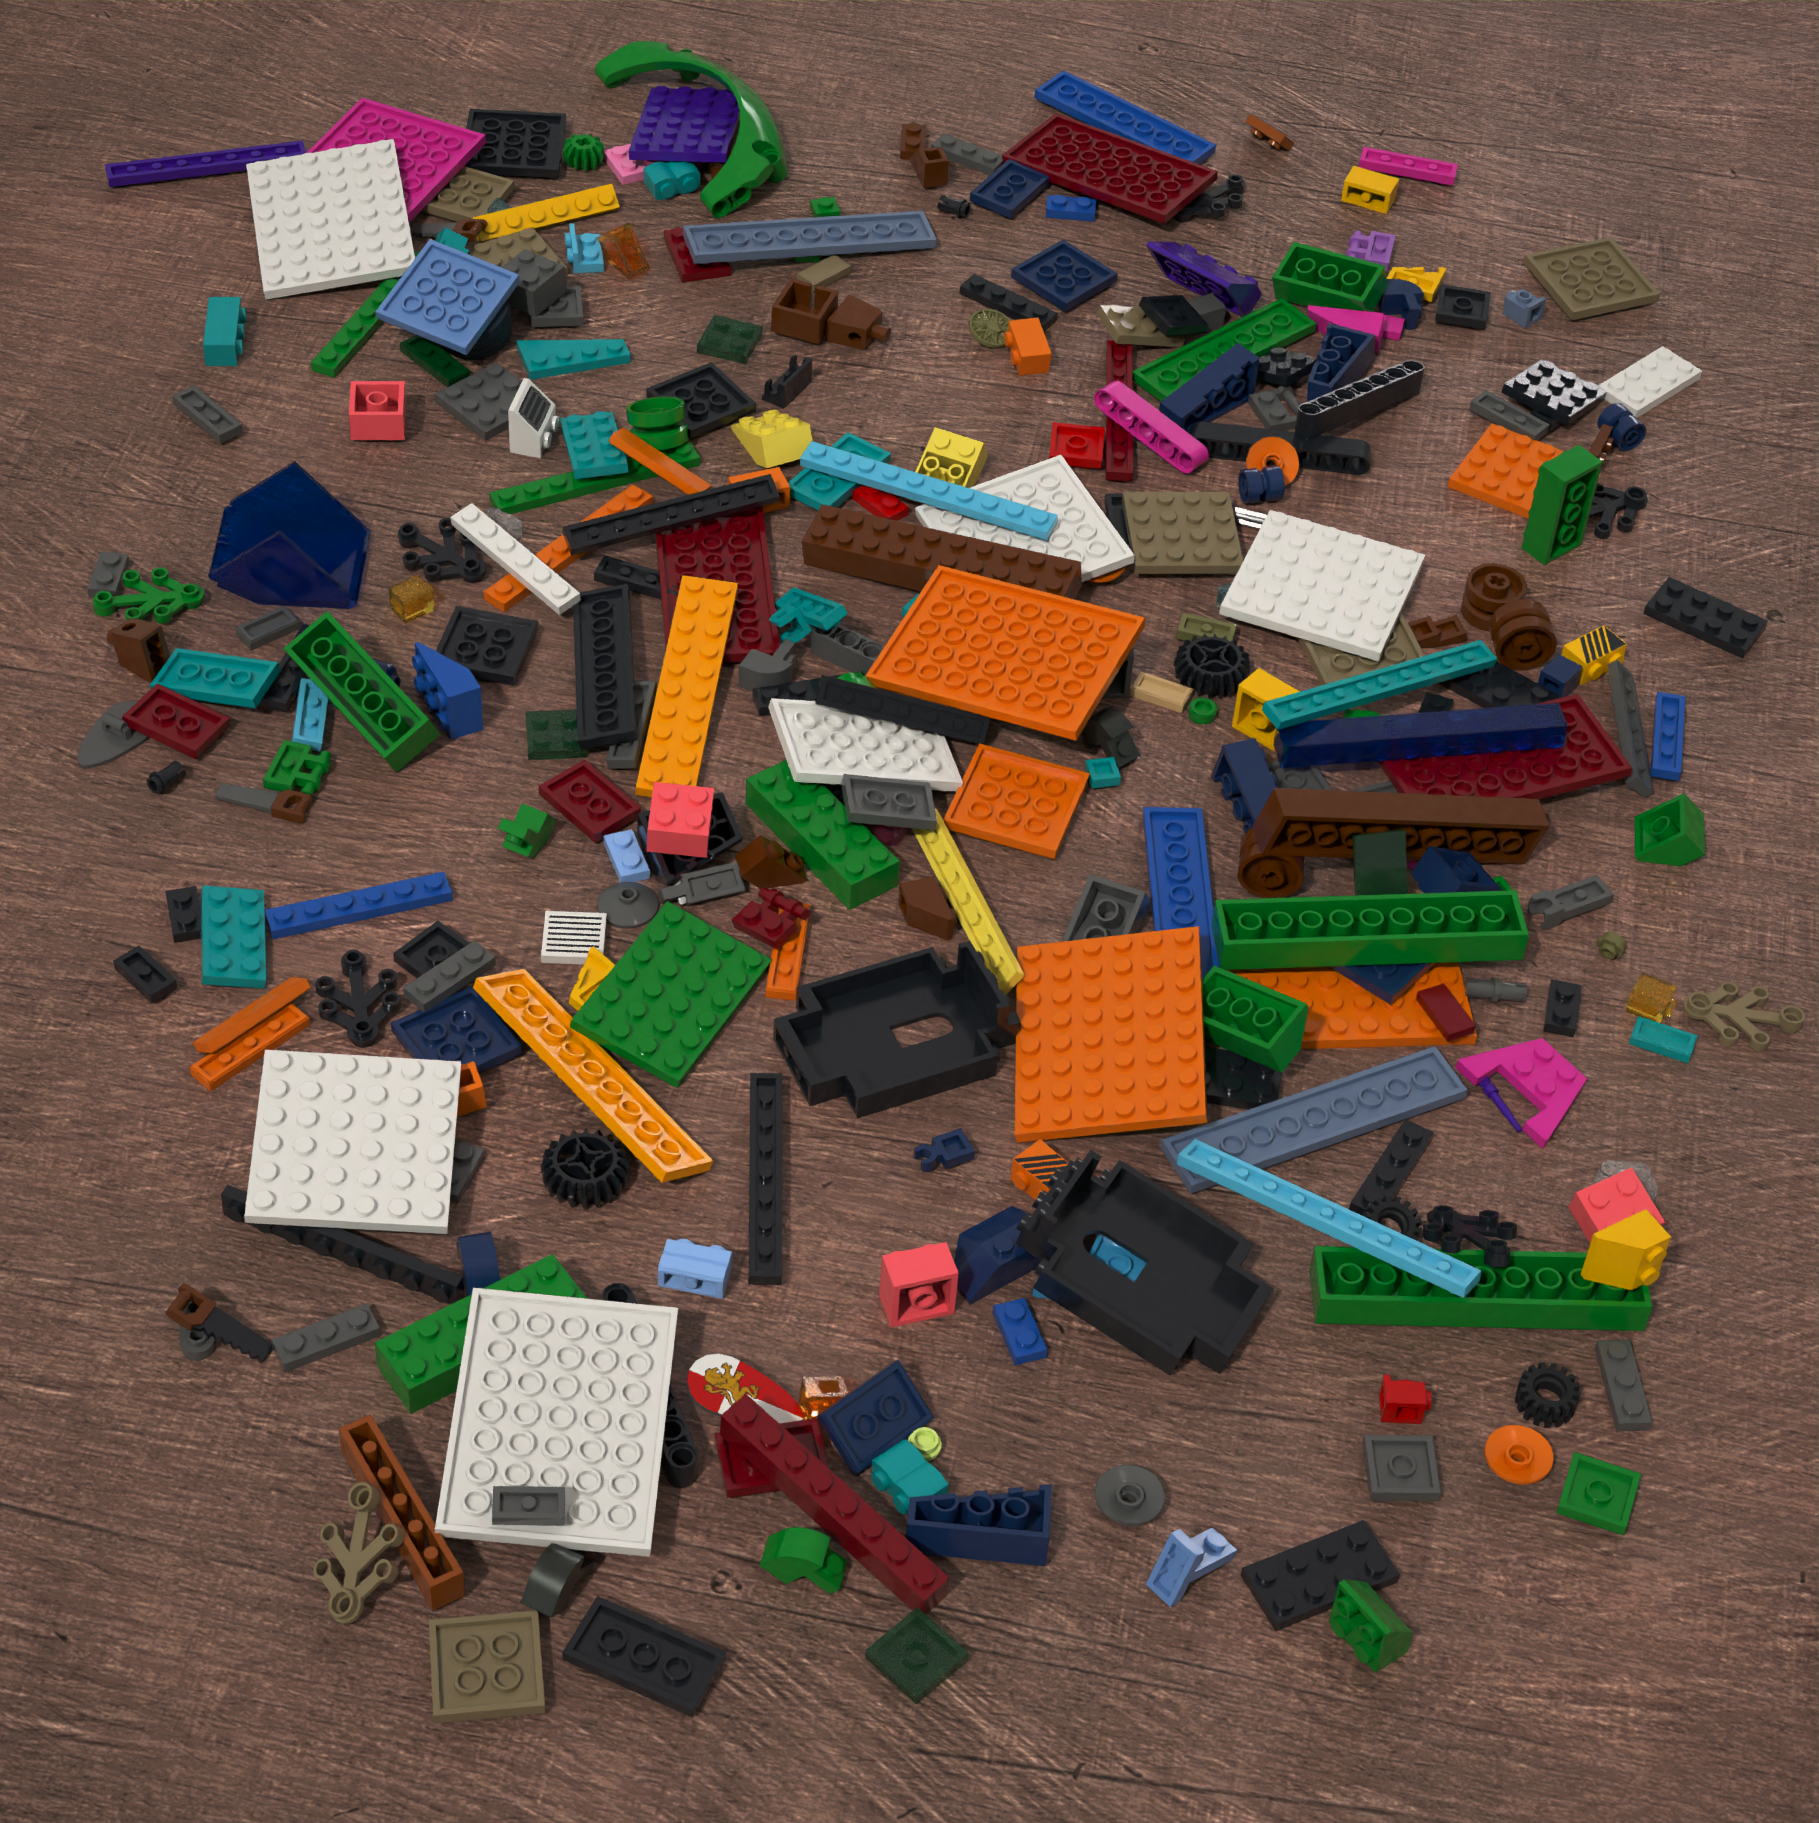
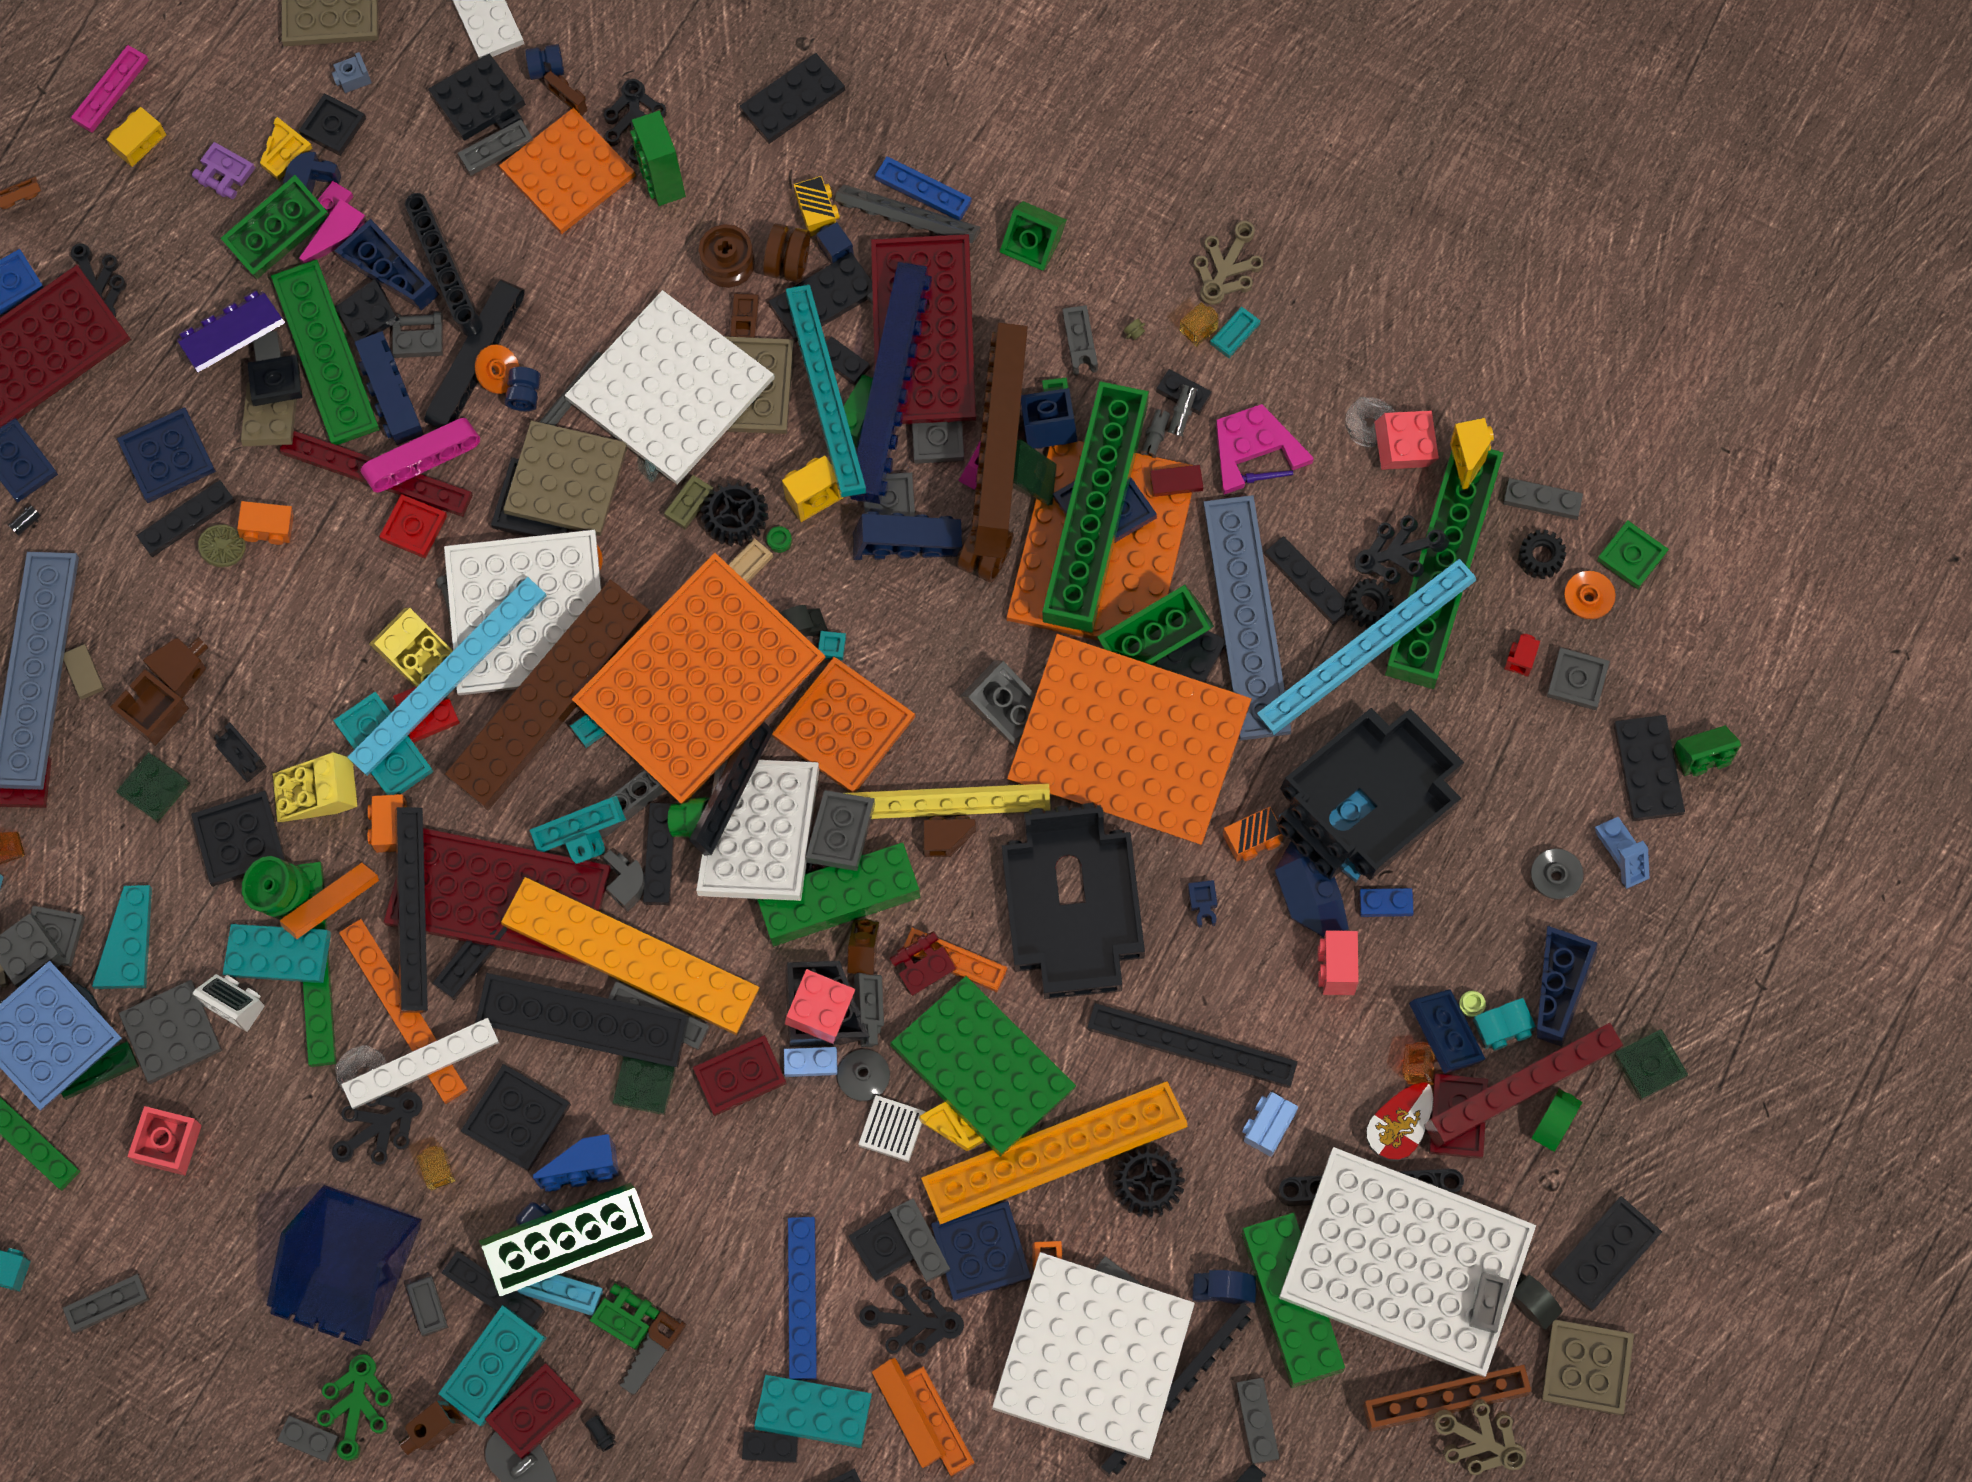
camera: 65 degrees left, 25 degrees up
(528, 831) = (765, 1136): green brick -> none
(1070, 208) = (61, 414): blue plate -> none
(1180, 874) = (975, 628): blue plate -> none
(1535, 1003) = (1182, 410): none -> dark grey pin

